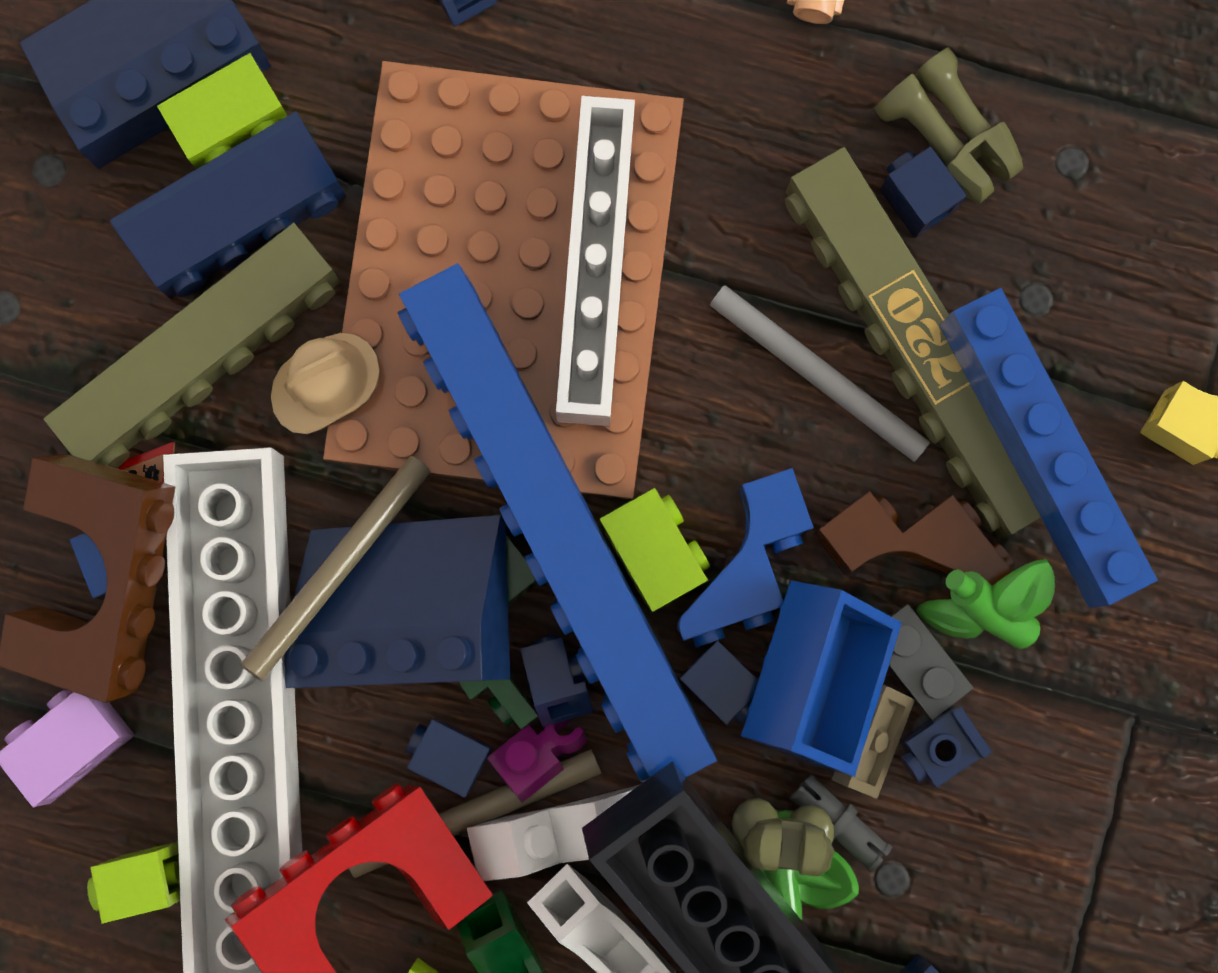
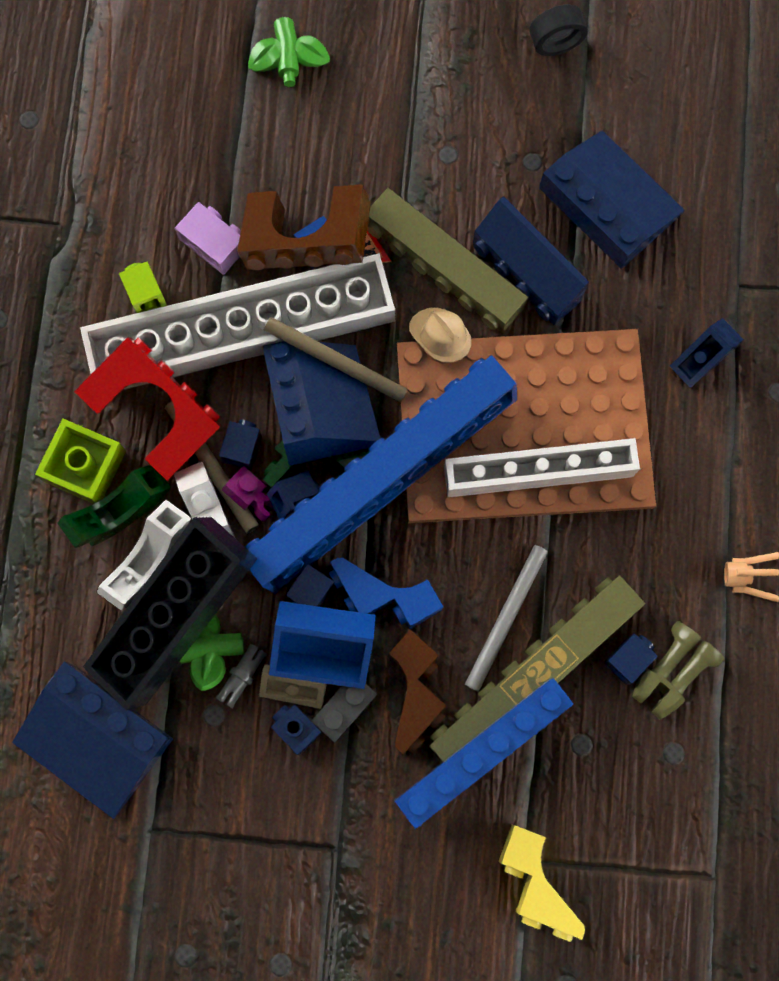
camera: 80 degrees right, 5 degrees down
(222, 111) = (582, 245): lime brick -> none
(654, 549) = (380, 538): lime brick -> none
(794, 843) = (221, 643): olive piece -> none
(1001, 609) = (384, 747): bright green plant -> none

